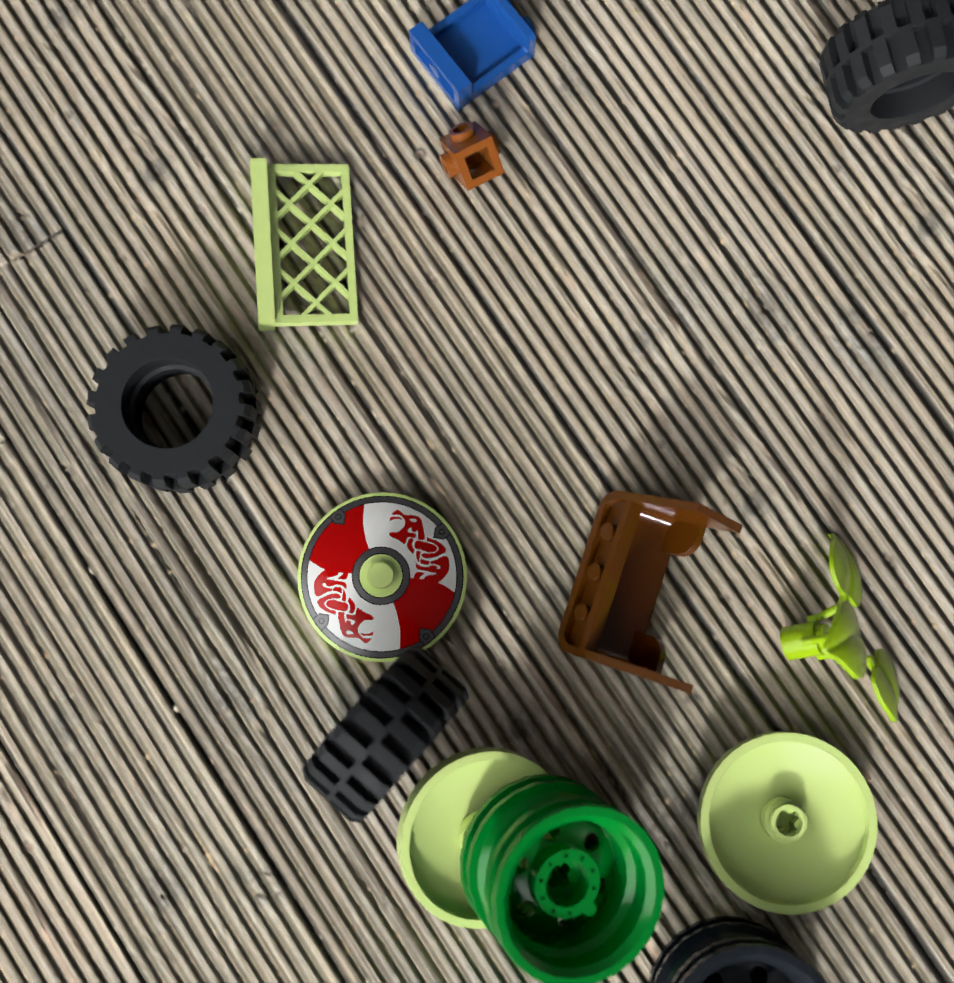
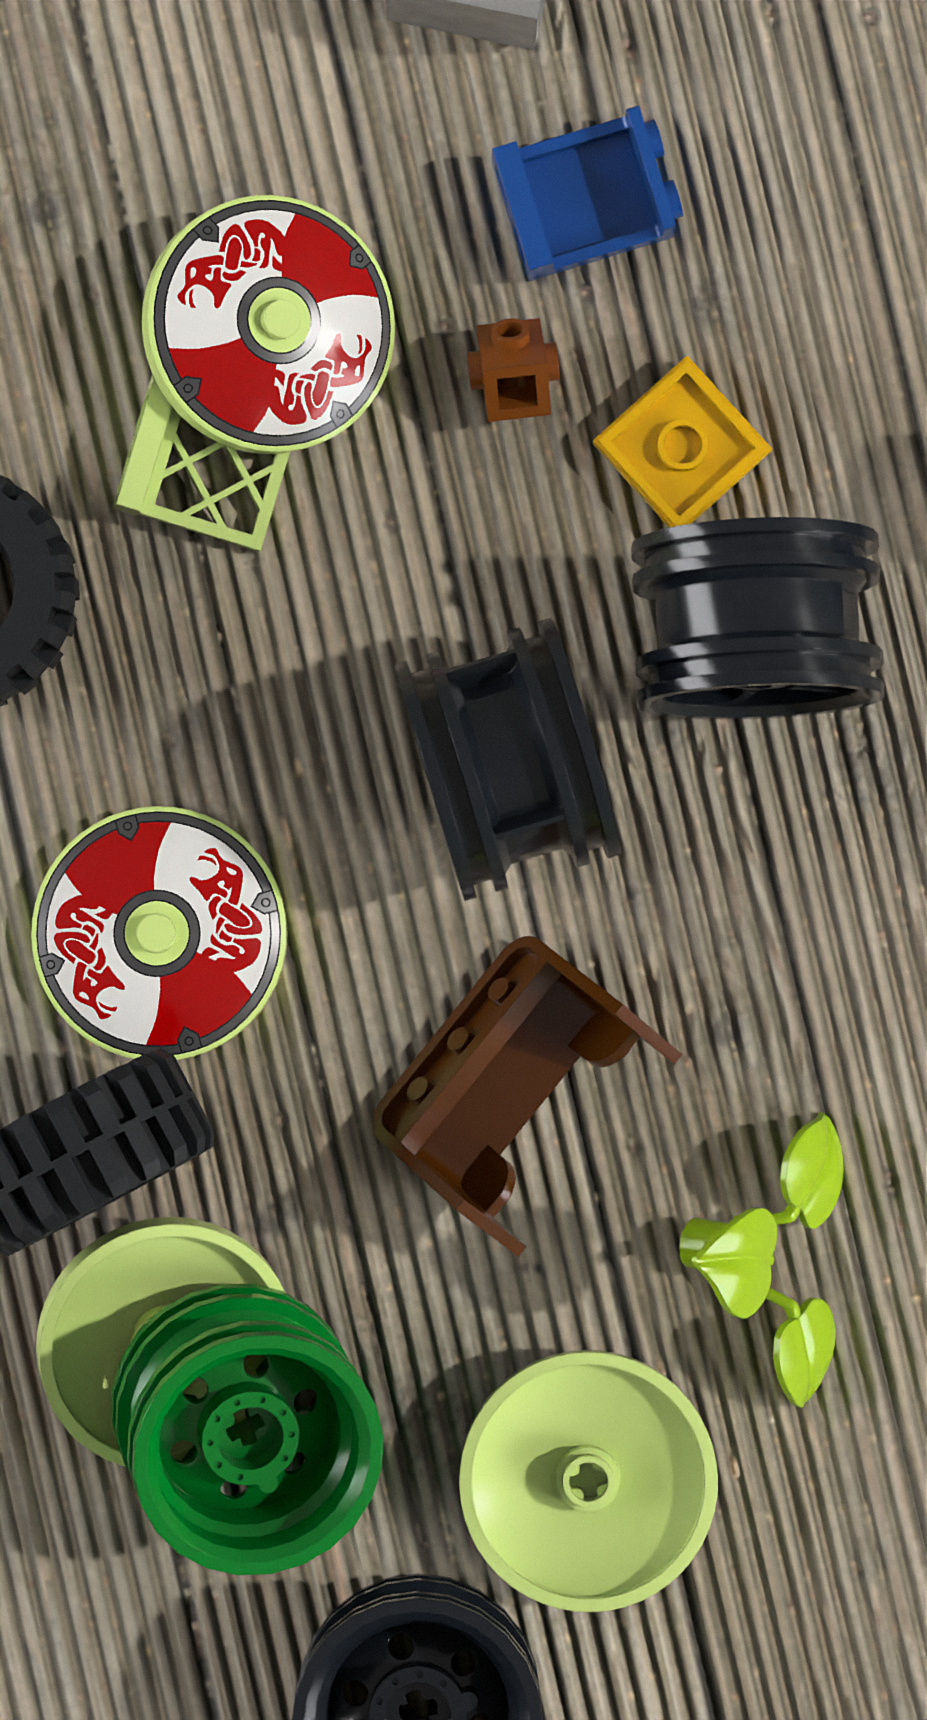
camera: 25 degrees right, 5 degrees up
(311, 182) = (268, 324): none -> dish
(565, 377) = (509, 758): none -> black wheel
(588, 167) = (682, 445): none -> yellow plate
(682, 235) = (757, 618): none -> black wheel

